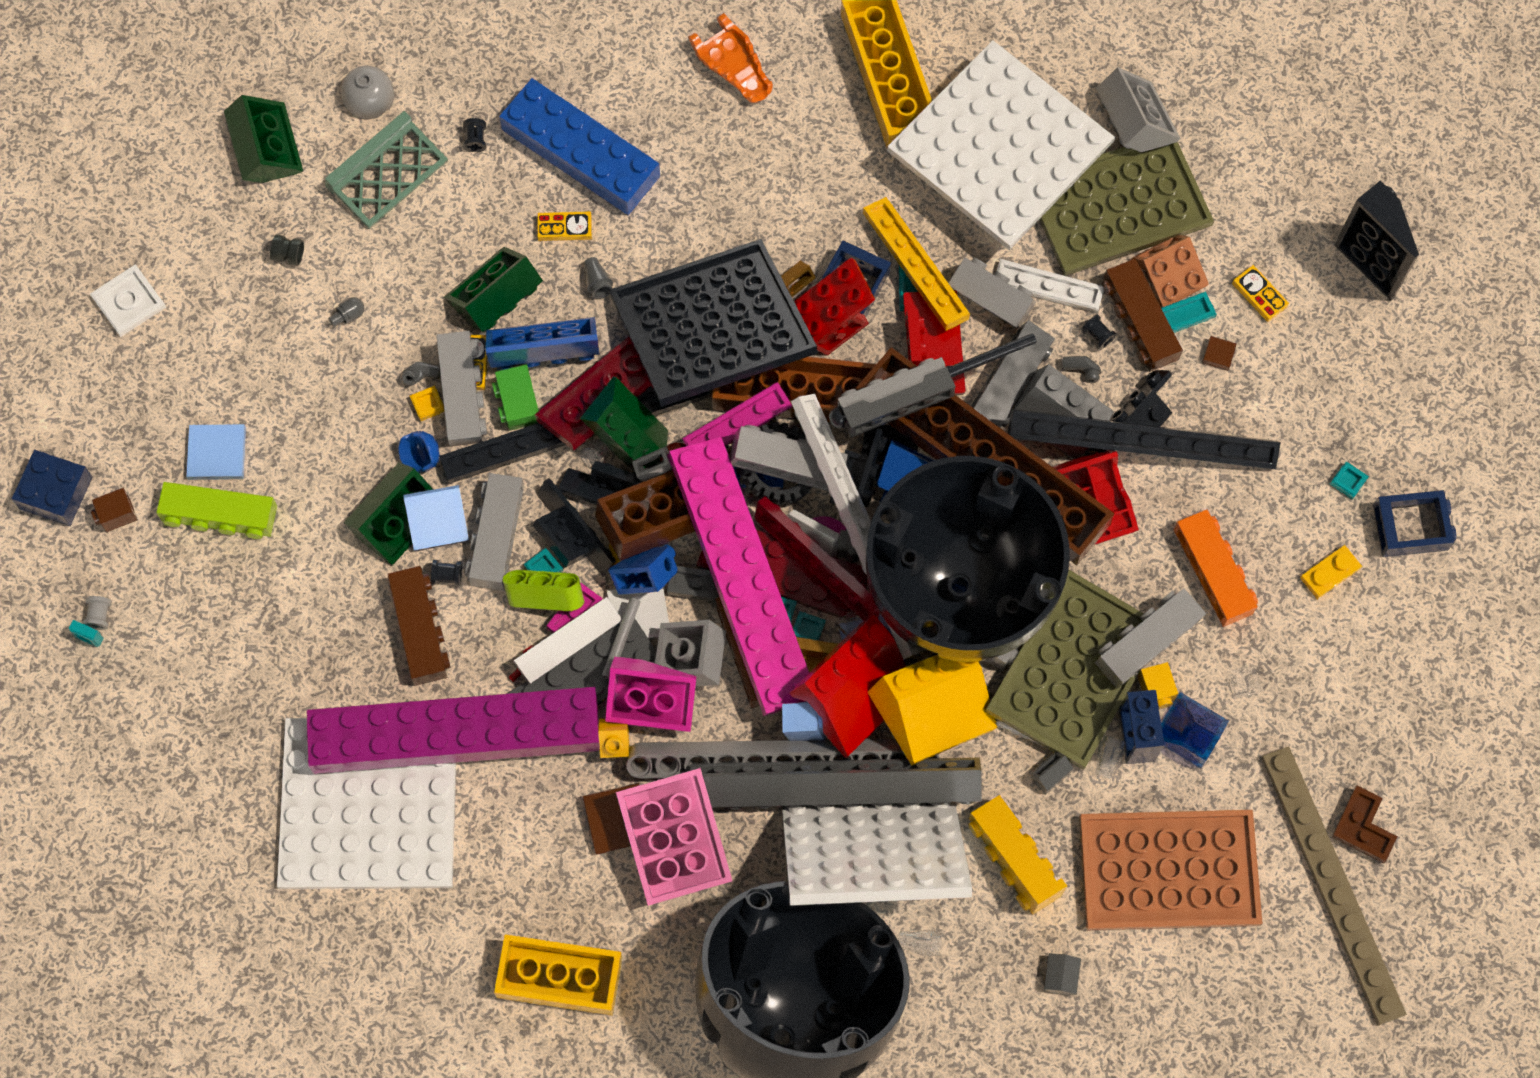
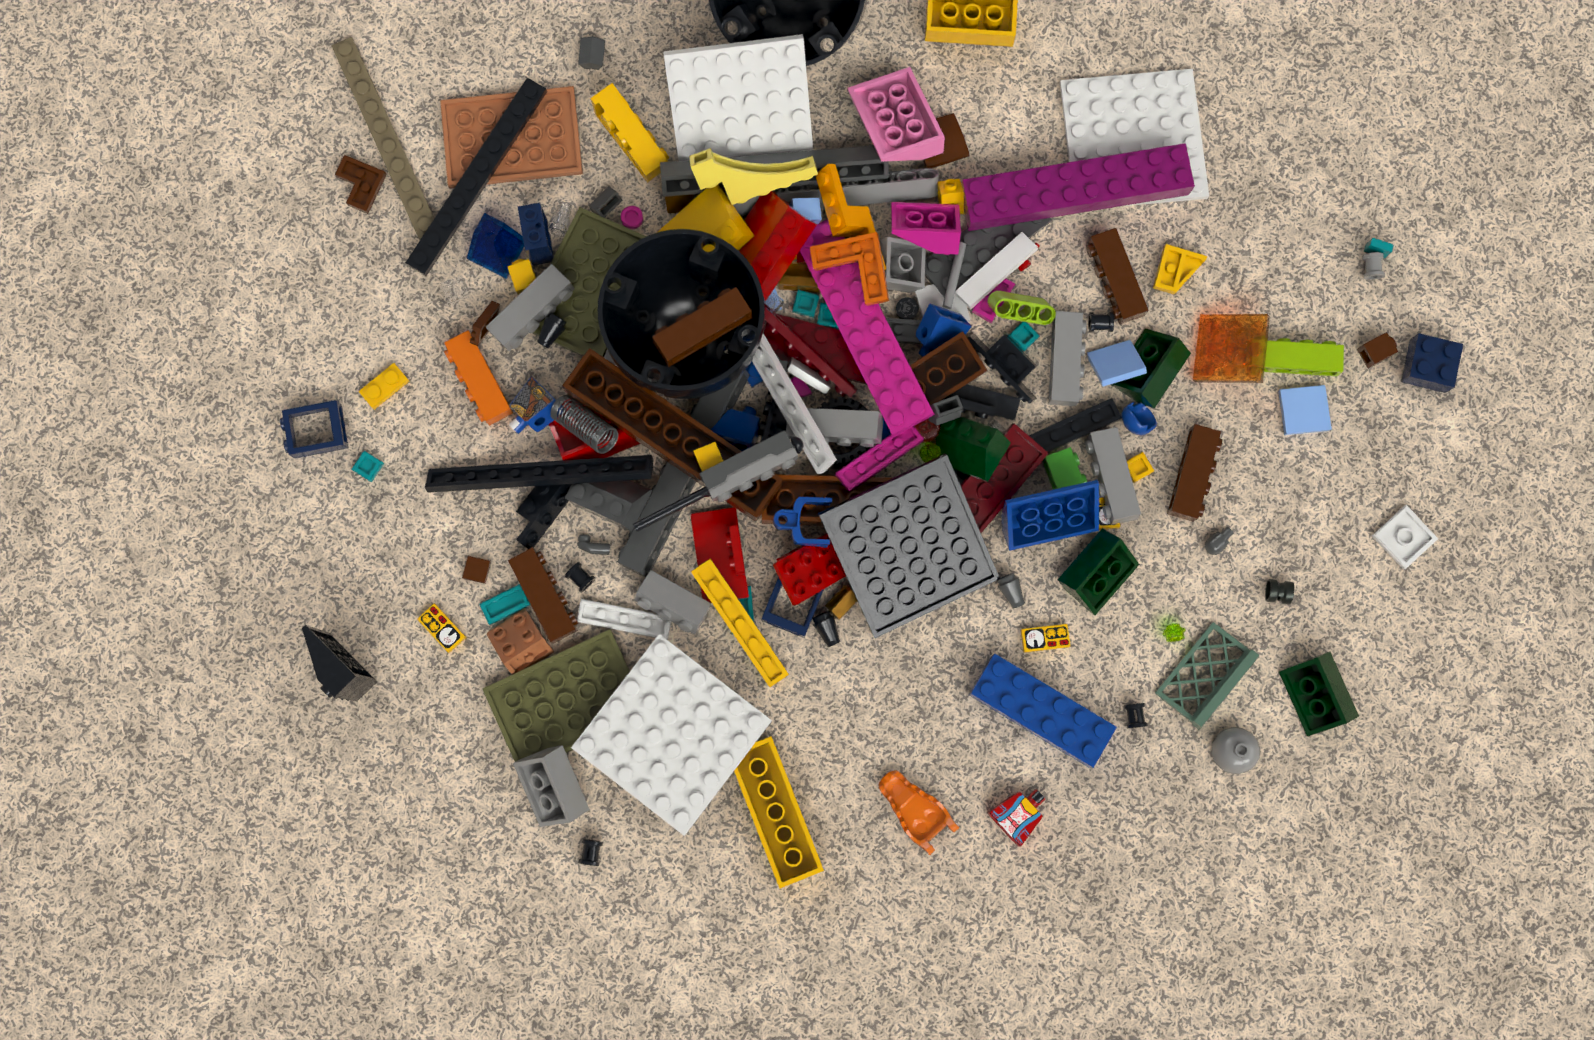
camera: 175 degrees right, 10 degrees up
(294, 520) = (1231, 348): none -> clear orange plate
(343, 631) = (1176, 268): none -> yellow wing
(362, 387) = (1194, 473): none -> reddish brown brick
(416, 218) = (1174, 632): none -> clear neon green plate
(418, 371) = (1151, 493): dark grey arm -> none
(621, 45) = (1018, 815): none -> torso
(673, 432) = (929, 451): none -> clear neon green plate
(683, 610) = (907, 308): none -> black tile
(733, 651) = (861, 249): none -> orange plate
(746, 699) = (843, 219): none -> light orange bracket
(815, 254) = (827, 628): none -> black cone
(847, 353) = (792, 520): none -> blue piece
(870, 756) = (747, 179): none -> light yellow arch
(942, 414) = (708, 456): none -> yellow tile
(944, 520) = (702, 326): none -> reddish brown brick
(1019, 755) = (631, 217): none -> dark pink tile
(1066, 454) = (593, 443): none -> dark grey piece
(1096, 49) = (590, 852): none -> black bush
(1123, 611) = (551, 330): none -> black cone
(1147, 524) = (533, 407): none -> torso
(1206, 626) = (479, 327): none -> reddish brown tile
(1214, 816) = (476, 177): none -> black plate

